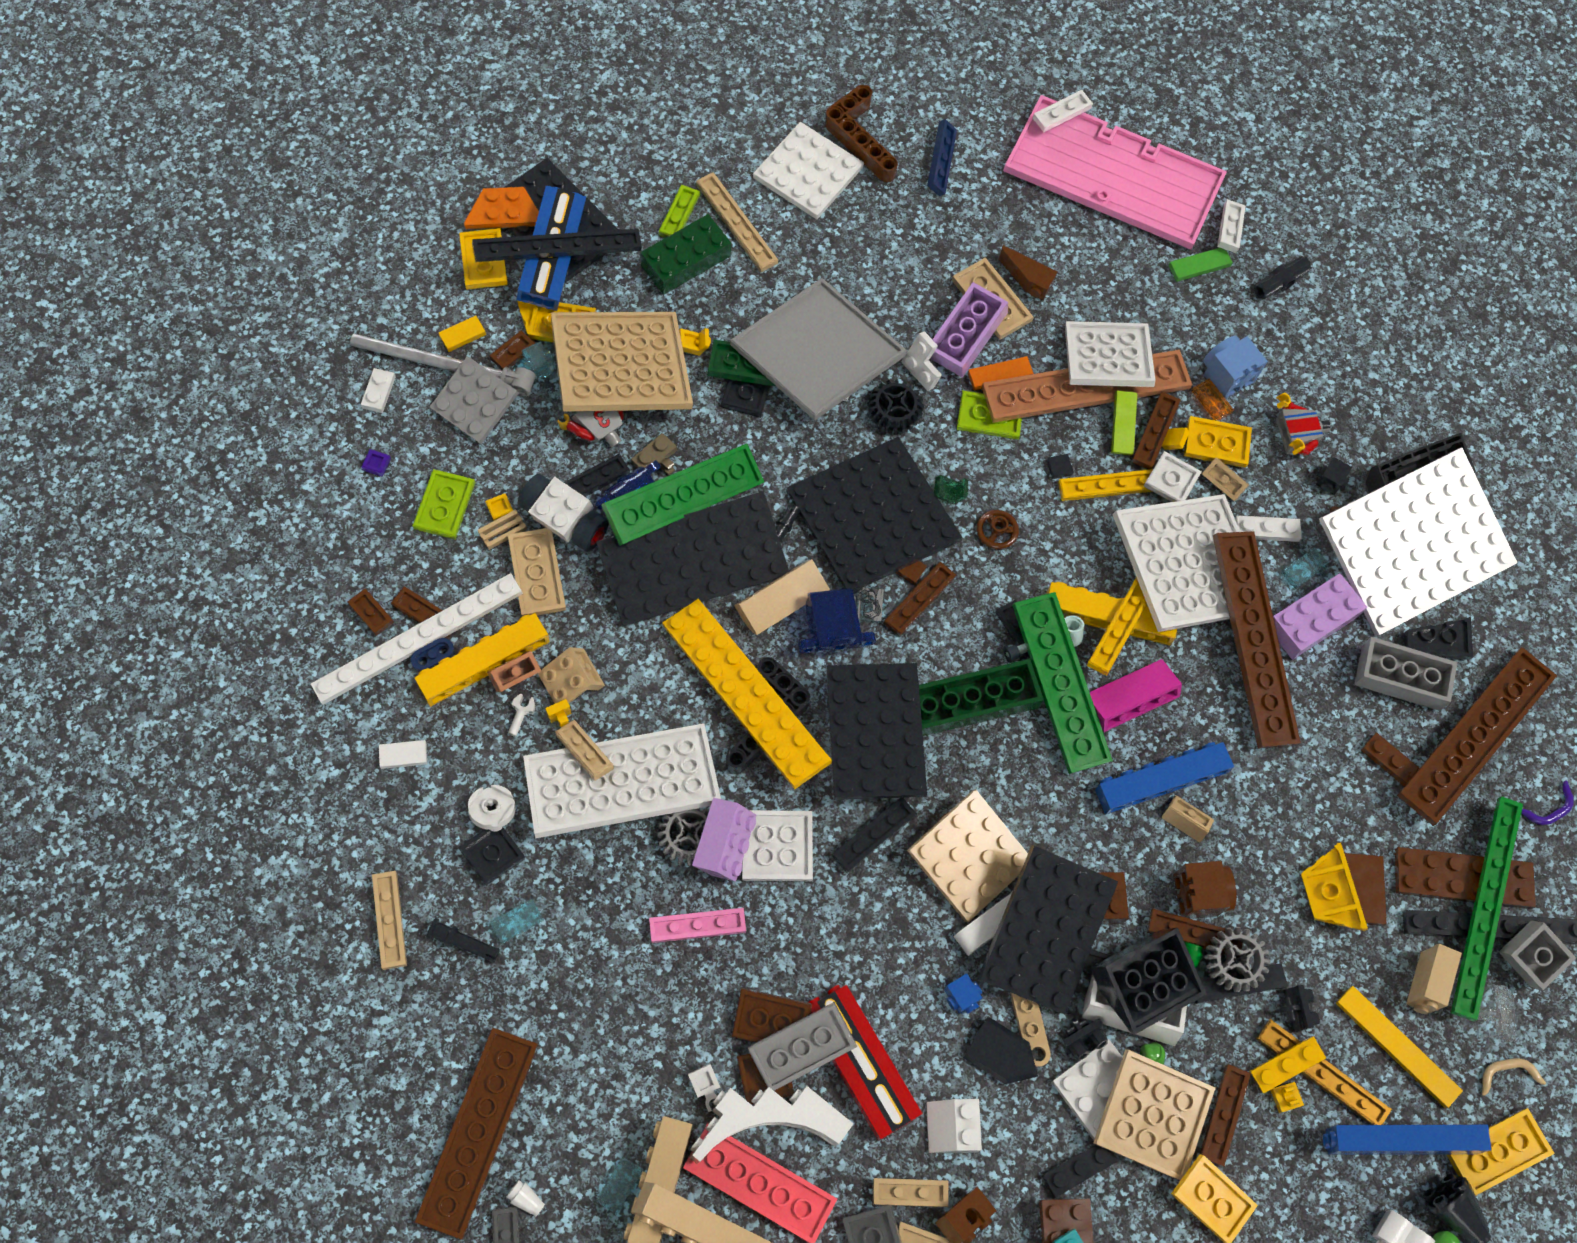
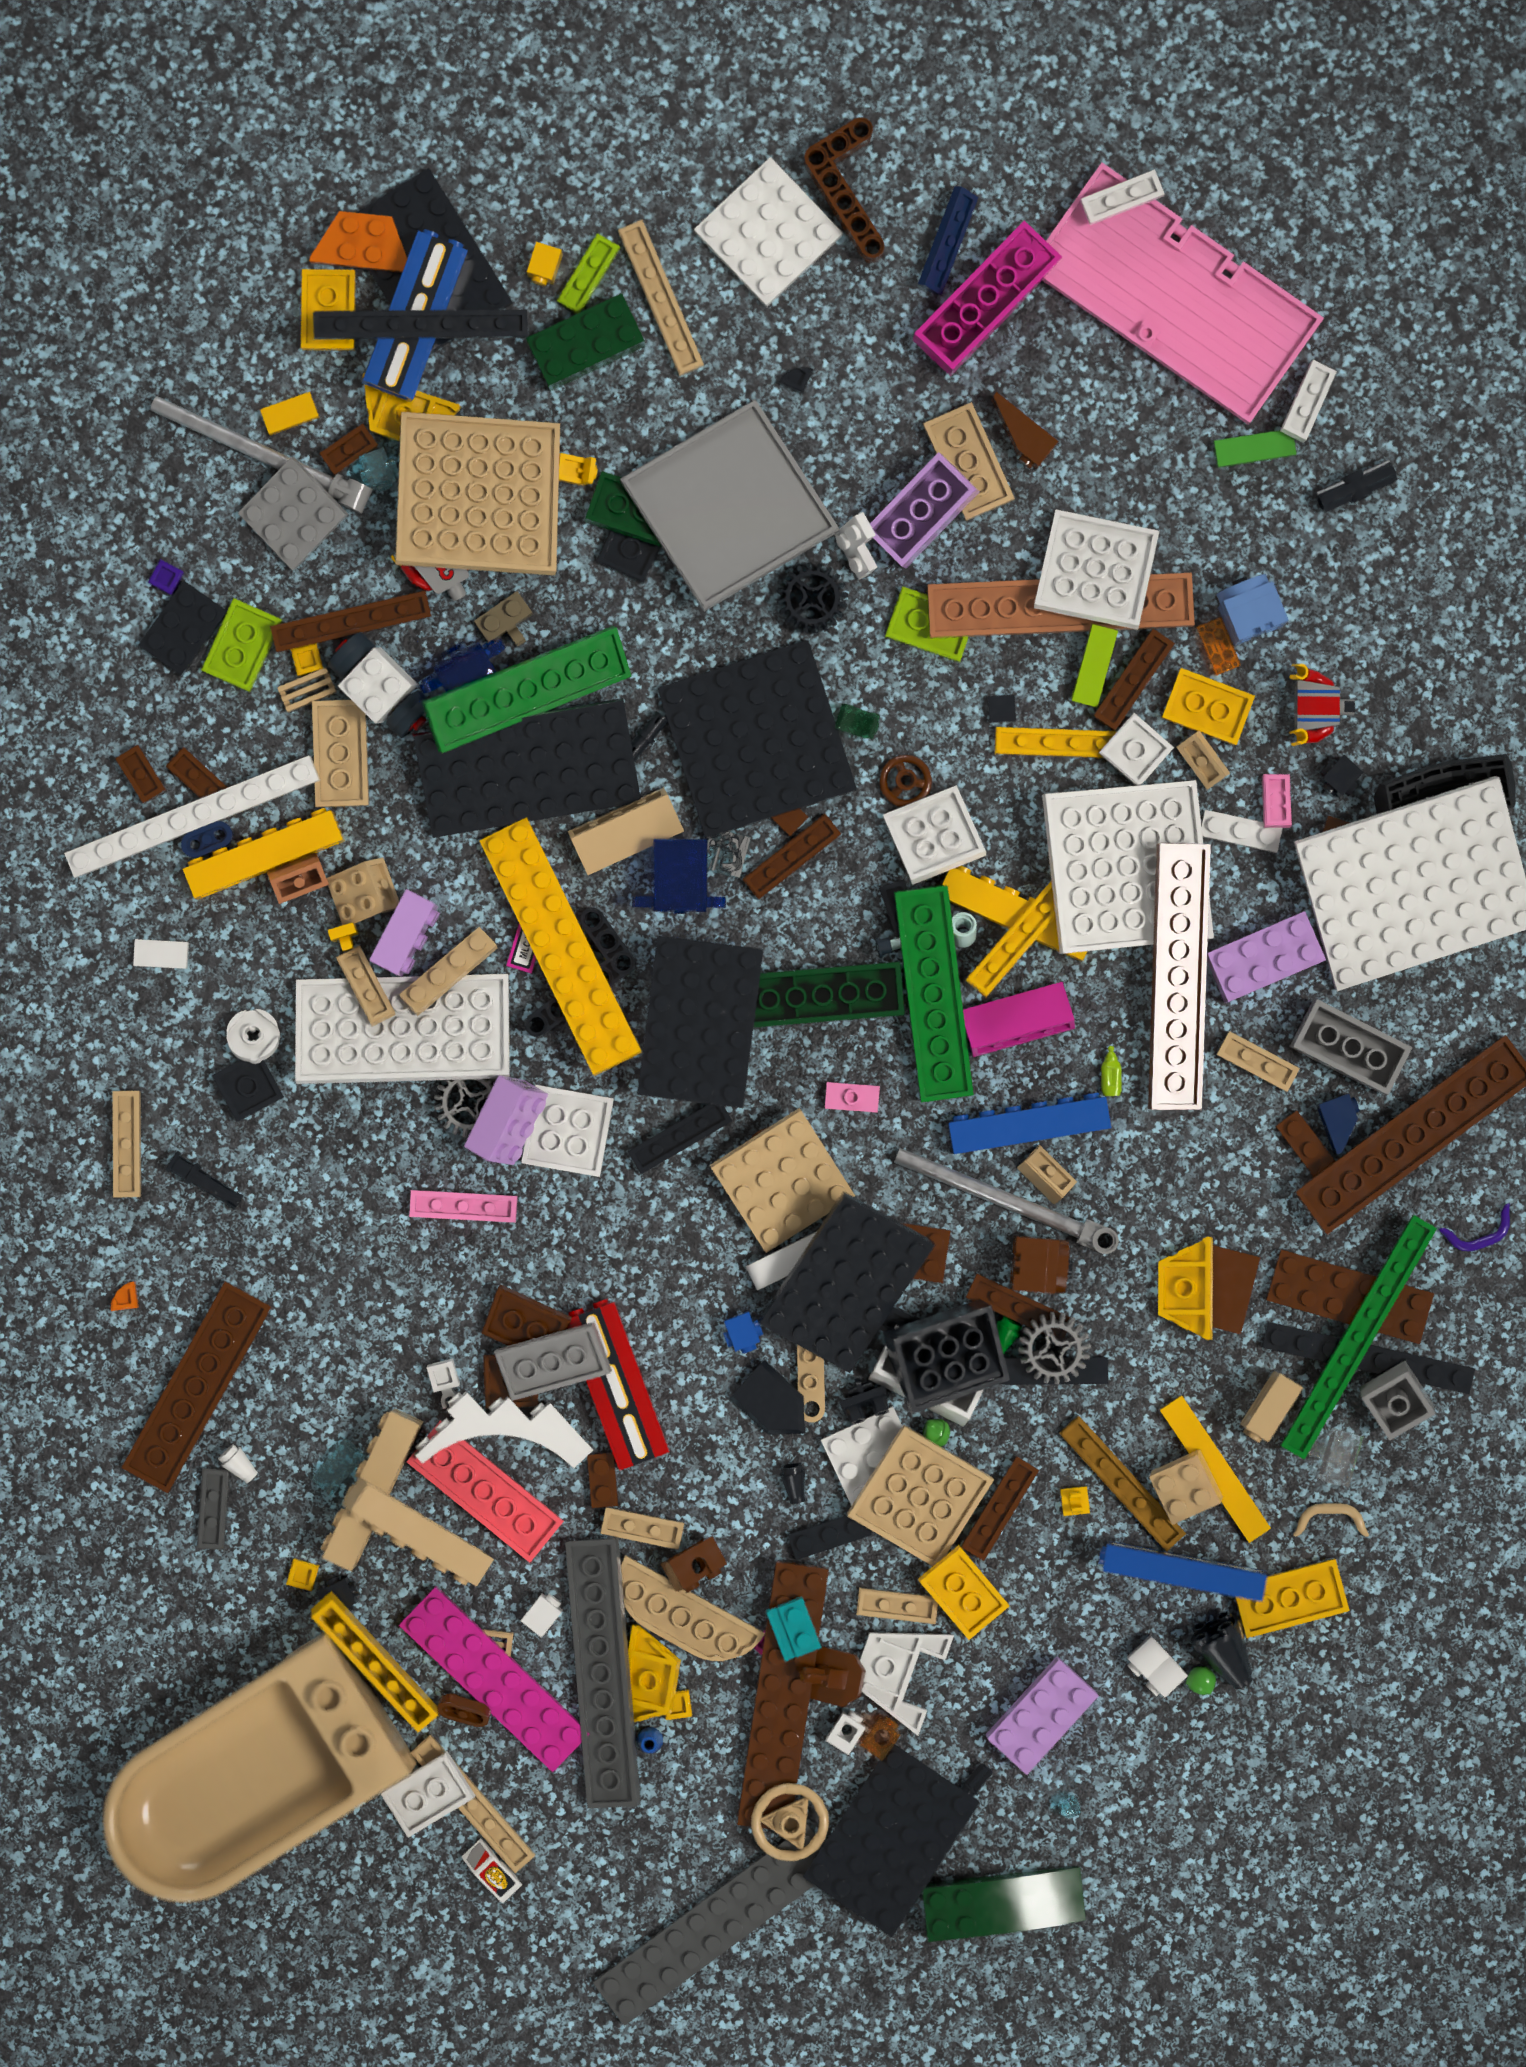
camera: 15 degrees right, 20 degrees up
(378, 390) = (178, 478): white plate -> none
(394, 498) = (183, 628): none -> black plate
(402, 1060) = (125, 1297): none -> orange tile
(517, 921) = (265, 1167): clear light blue tile -> none
(518, 475) = (350, 621): none -> reddish brown plate
(520, 713) = (300, 925): white bar -> none
(599, 476) = (429, 637): black tile -> none
(612, 701) = (405, 933): none -> lavender brick
(645, 207) = (544, 264): none -> yellow brick
(652, 728) = (448, 971): none -> tan plate
(713, 706) = (521, 953): none -> tile
(850, 262) = (797, 379): none -> black tile
(865, 1154) = (602, 1480): none -> reddish brown plate
(954, 1126) = (702, 1469): white slope -> none
(979, 189) = (986, 298): none -> dark pink slope
(999, 371) = (956, 568): orange tile -> none
(1011, 780) = (852, 1097): none -> bright pink plate
(1032, 561) = (934, 835): none -> white plate
(1038, 1124) = (794, 1482): none -> black cone
(1155, 1225) = (897, 1605): none -> tan tile
(1175, 438) = (1155, 695): yellow tile -> none
(1219, 727) = (1111, 1074): none -> lime piece
(1235, 858) = (1085, 1232): none -> flat silver piece
(1288, 1064) = (1083, 1468): yellow plate -> none
(1289, 501) = (1276, 800): none -> bright pink plate
(1298, 1009) = (1110, 1410): black hips -> none
(1305, 568) = (1272, 890): clear light blue tile -> none
(1334, 698) = (1257, 1061): none -> tan plate
(1382, 1064) = (1186, 1487): none -> tan brick
(1412, 735) = (1338, 1120): none -> dark blue slope
(1443, 640) = (1413, 1010): black wing -> none

